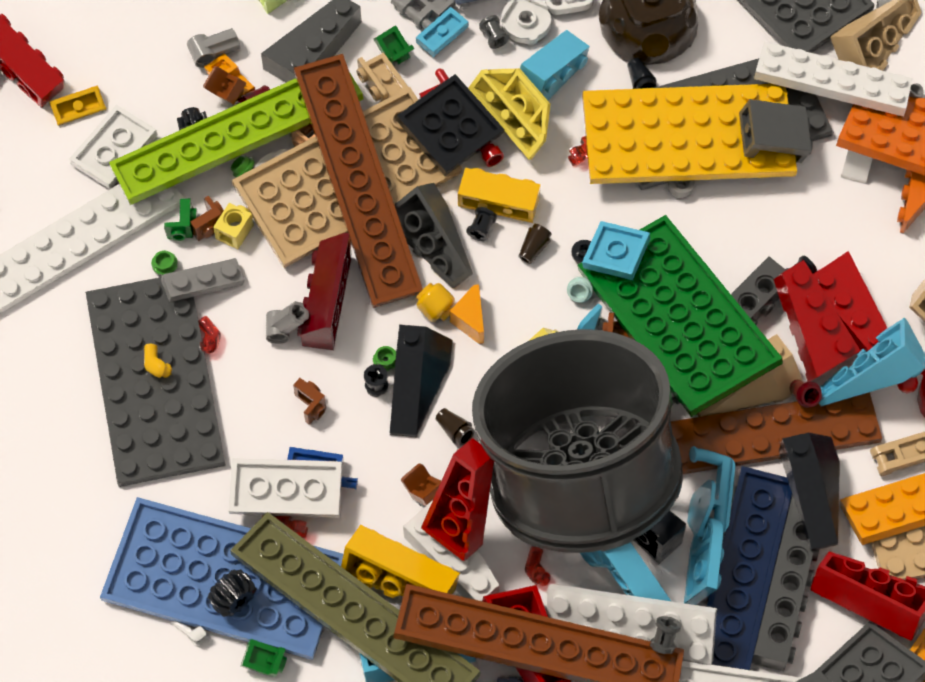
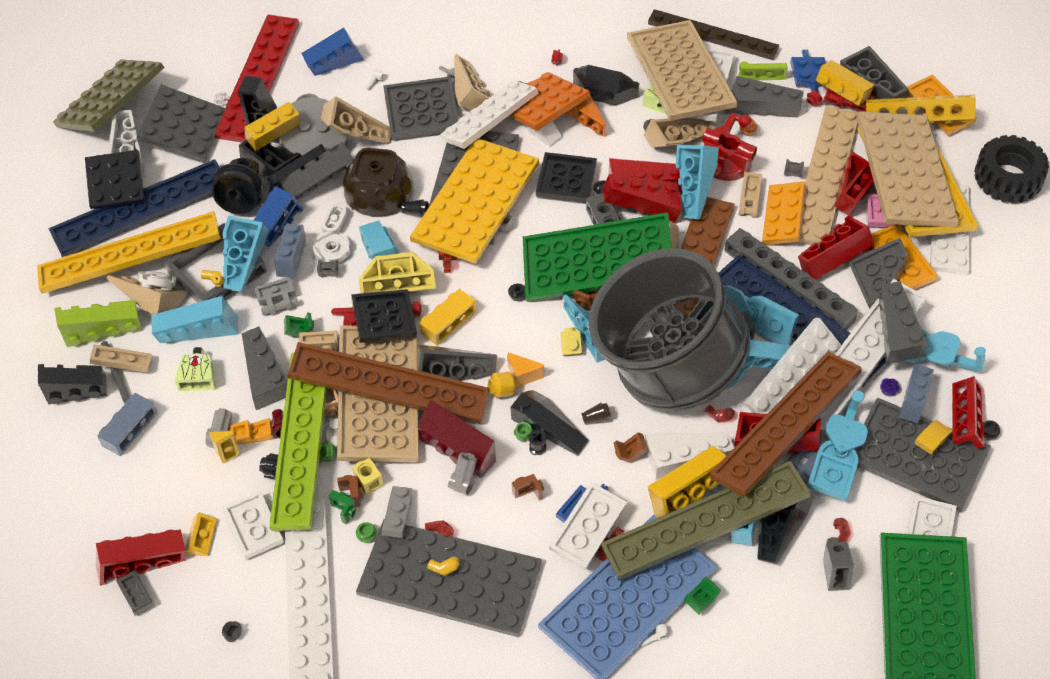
camera: 60 degrees left, 10 degrees down
(186, 61) = (224, 445): none -> yellow slope
(224, 85) = (260, 431): dark orange bracket -> none
(232, 593) = (651, 588): black gear -> none
(442, 32) = (306, 295): medium azure plate -> none
(461, 501) = (672, 413): red wedge -> none
(481, 224) = (462, 335): black bush -> none
(534, 243) = (494, 313): dark brown cone -> none
(579, 289) = (542, 305): light aqua plate -> none
(616, 250) = (533, 269): medium azure plate -> none
(665, 635) = (817, 351): dark grey bush -> none
(775, 129) = (506, 153): dark grey panel -> none
(797, 219) = (566, 177): none -> black plate
(806, 392) = (687, 221): dark red cone -> none
(814, 482) = (748, 242): black wedge -> none

